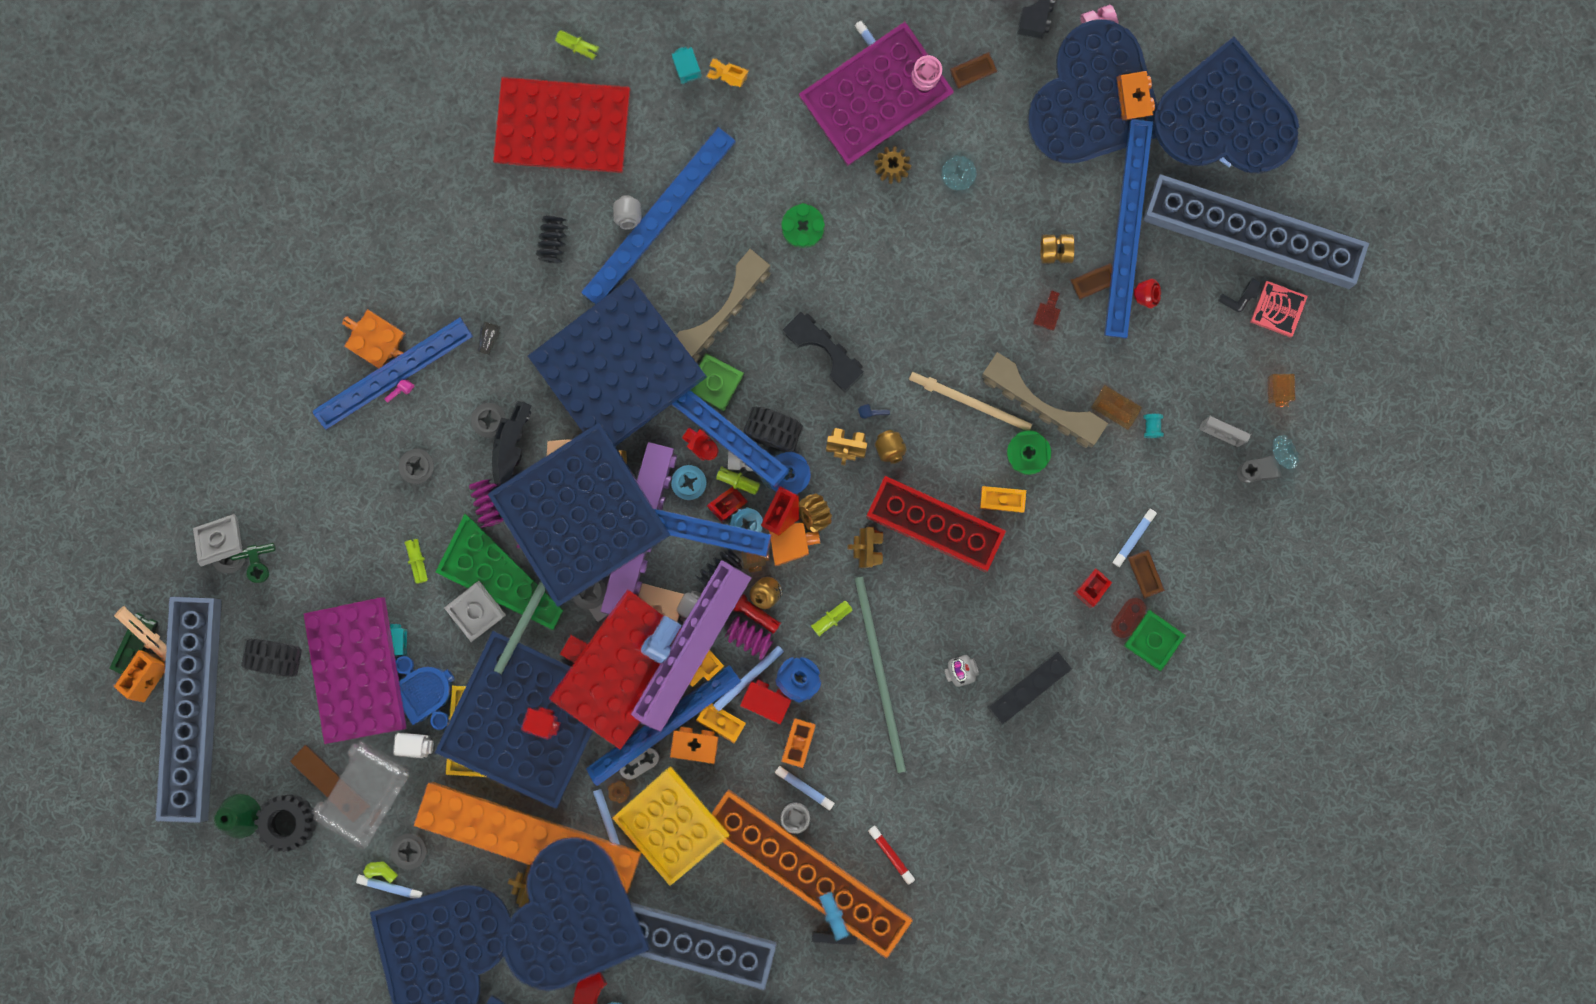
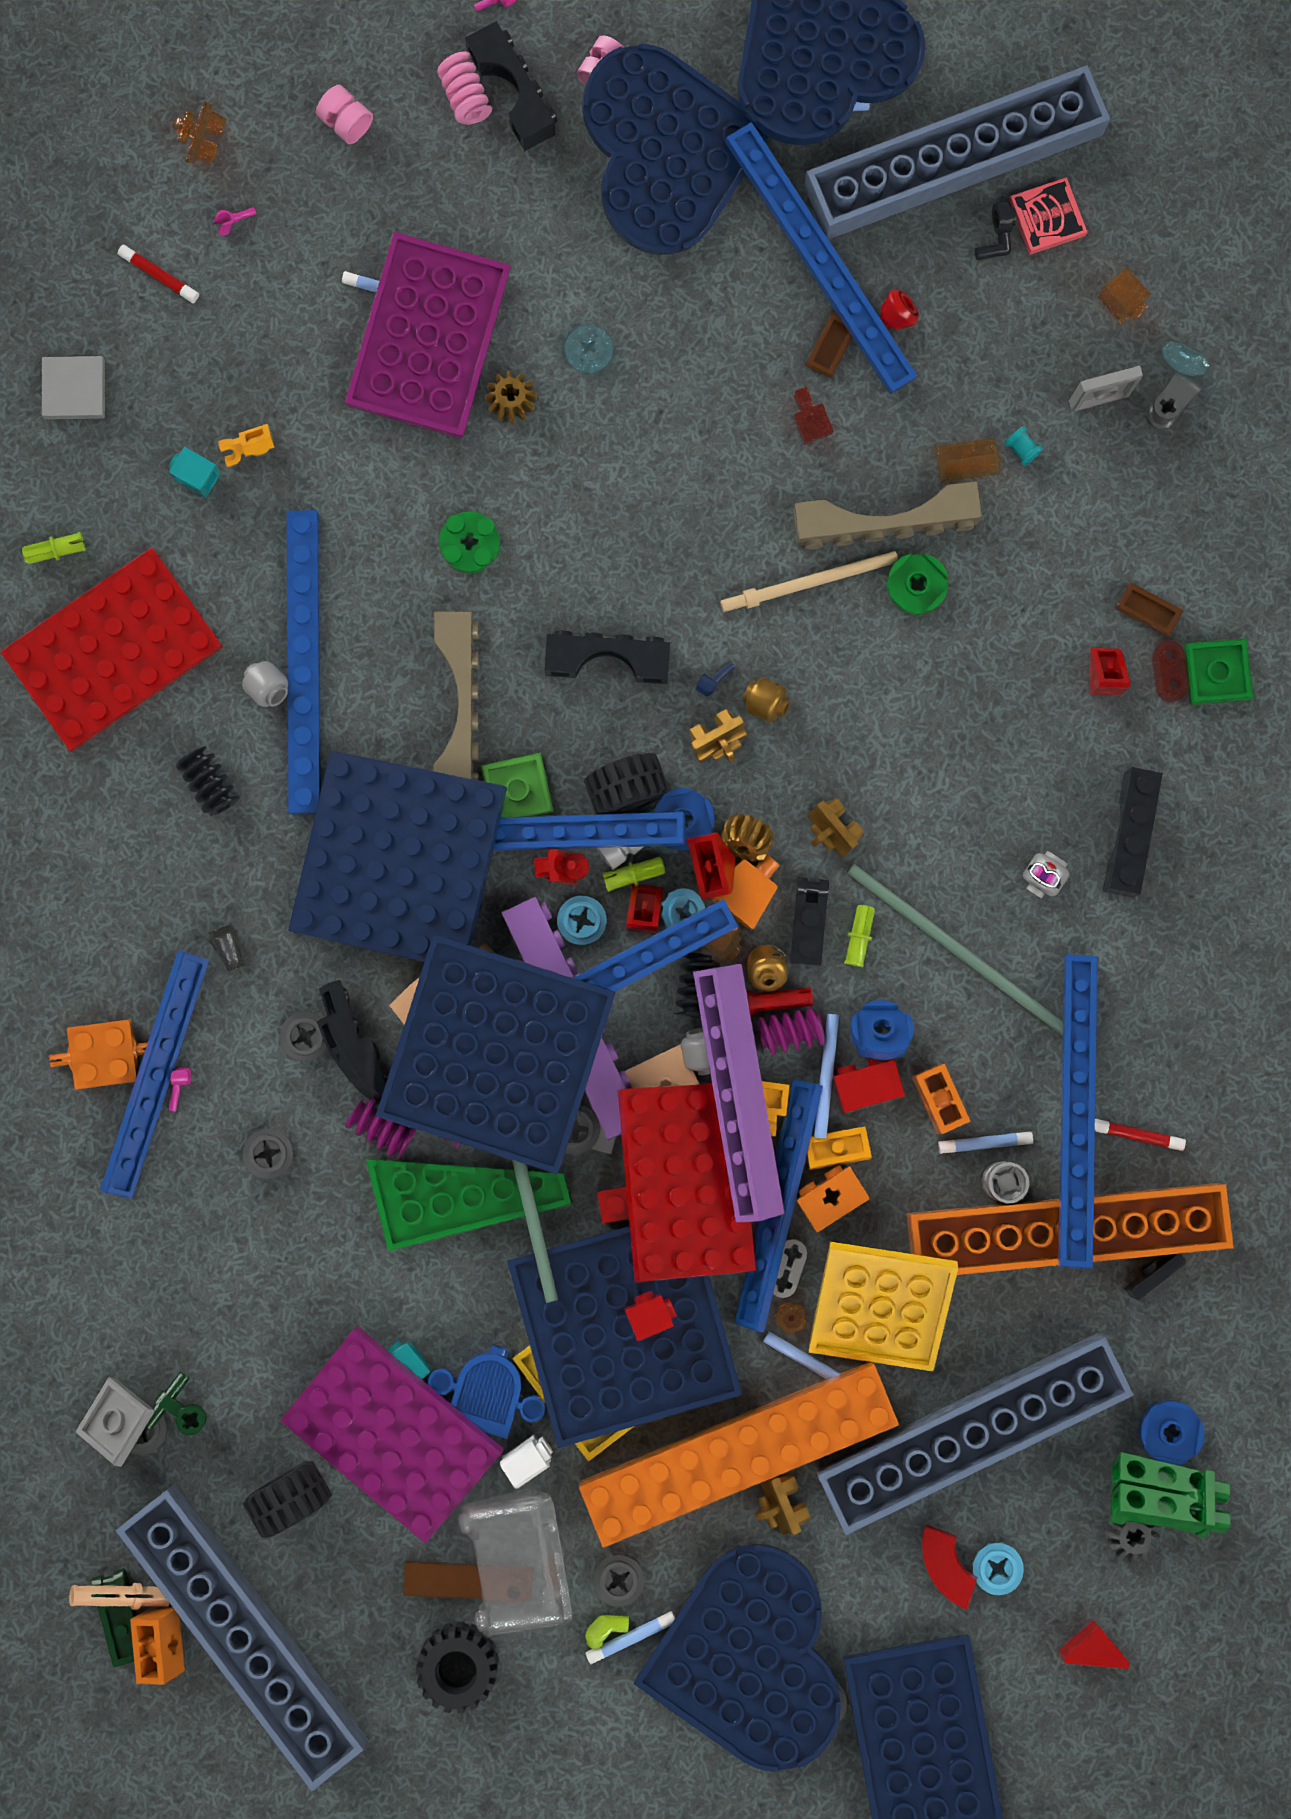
camera: 50 degrees left, 0 degrees up
(237, 816) = (397, 1705): dark green cone -> none
(416, 561) = (356, 1256): lime axle -> none
(475, 611) = (468, 1256): light grey tile -> none
(574, 919) = (867, 1498): dark blue plate -> none
(658, 645) = (703, 1122): medium blue piece -> none
(810, 588) = (809, 923): none -> black plate
(834, 915) = (1141, 1251): dark azure pin -> none
(866, 812) = (1078, 1112): none -> blue plate
(926, 72) = (465, 265): bright pink wheel -> none
(935, 524) = (886, 741): red brick -> none
(973, 70) = (511, 226): reddish brown tile -> none
(1003, 499) = (932, 656): light orange plate -> none
(1049, 248) = (765, 340): pearl gold wheel -> none
(1134, 537) = (1104, 581): light blue bar -> none
(1135, 107) = (694, 105): orange brick -> none

